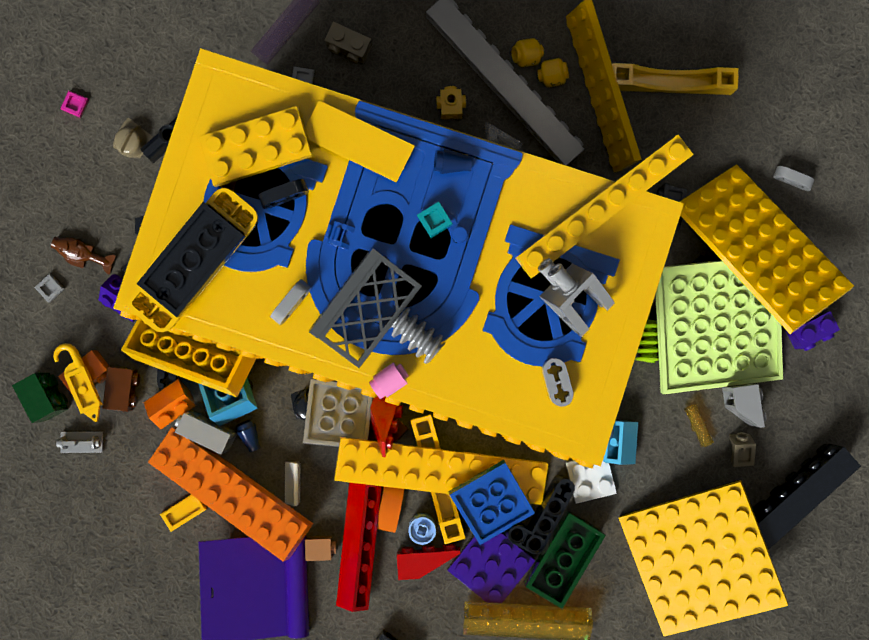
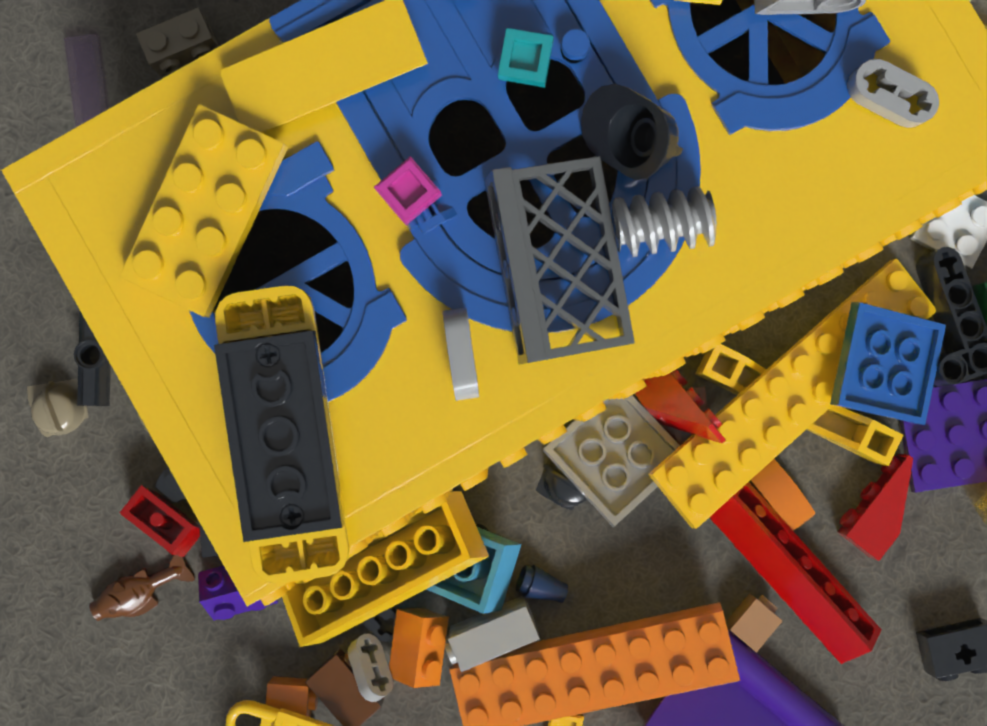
camera: 45 degrees left, 0 degrees up
(49, 288) = (145, 666): light grey tile -> none
(121, 235) = (161, 521): none -> red brick
(140, 390) = (370, 667): none -> light grey beam
(283, 193) = (303, 229): black beam -> none
(292, 483) = (645, 584): white slope -> none
(337, 221) = (408, 191): none -> dark pink tile
(389, 380) = (688, 316): bright pink brick -> none
(422, 528) = (841, 477): light blue wheel -> none
(440, 289) = (629, 131): none -> black piece

